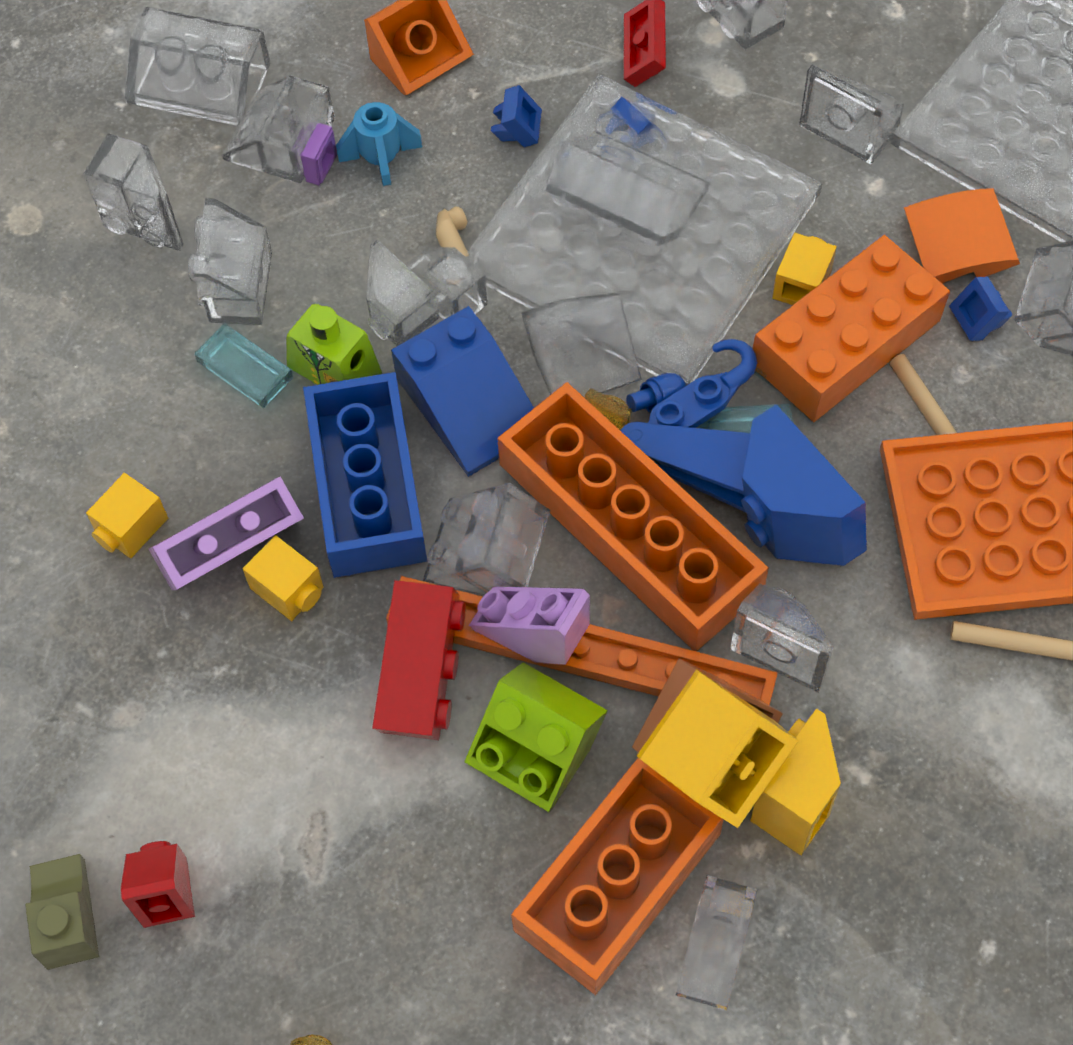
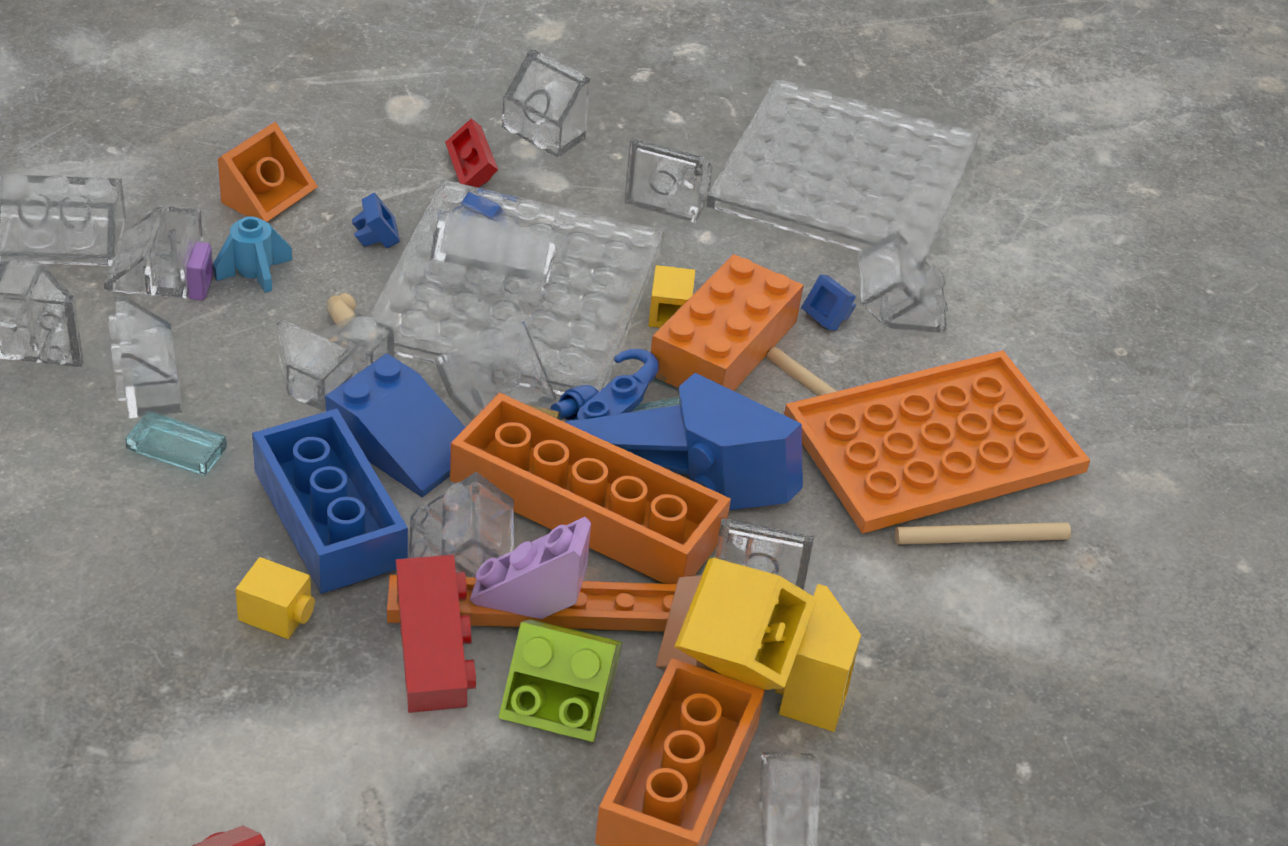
camera: 25 degrees left, 20 degrees down
(126, 516) = (98, 574): yellow brick -> none
(226, 533) = (205, 567): lavender brick -> none
(329, 348) = (259, 401): lime torso -> none
(962, 235) = (793, 251): orange slope -> none

